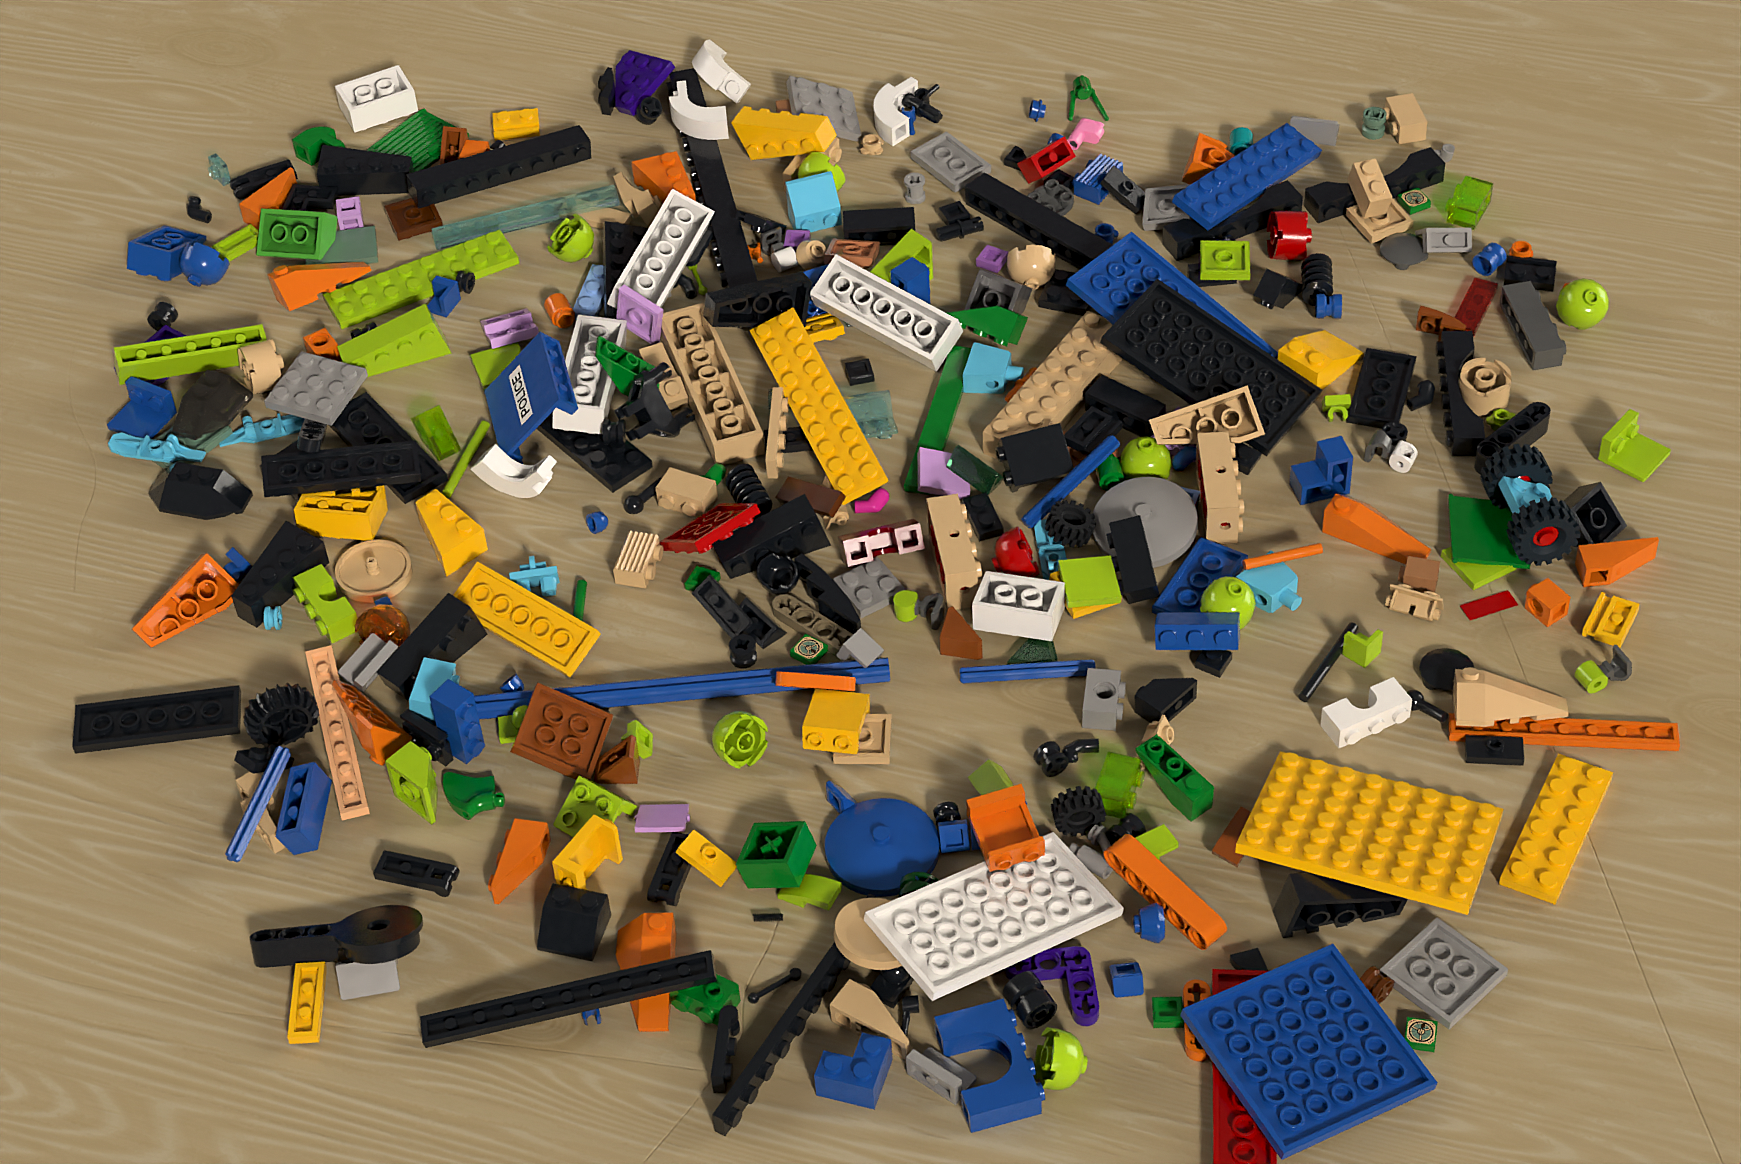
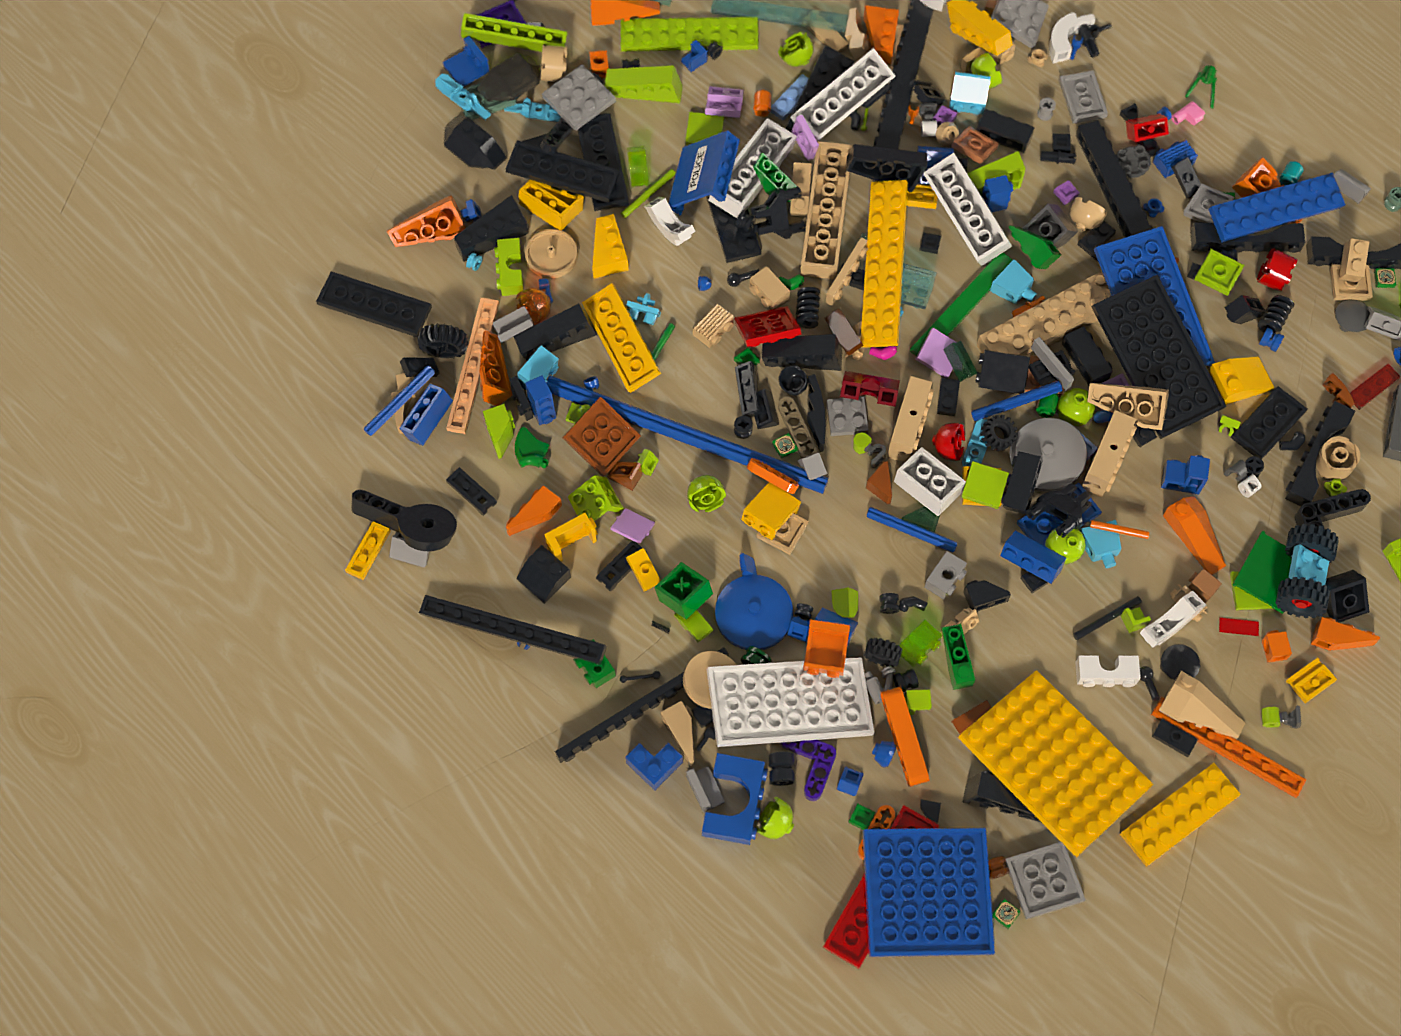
camera: 25 degrees right, 20 degrees up
(643, 942) = (576, 618): orange wedge -> none
(724, 1048) = (587, 706): black plate -> none
(1037, 110) = (1166, 78): blue plate -> none
(1090, 419) = (1052, 363): none -> light grey tile
(1199, 561) = (1064, 506): none -> black connector
(1410, 622) = (1173, 620): none -> white arch

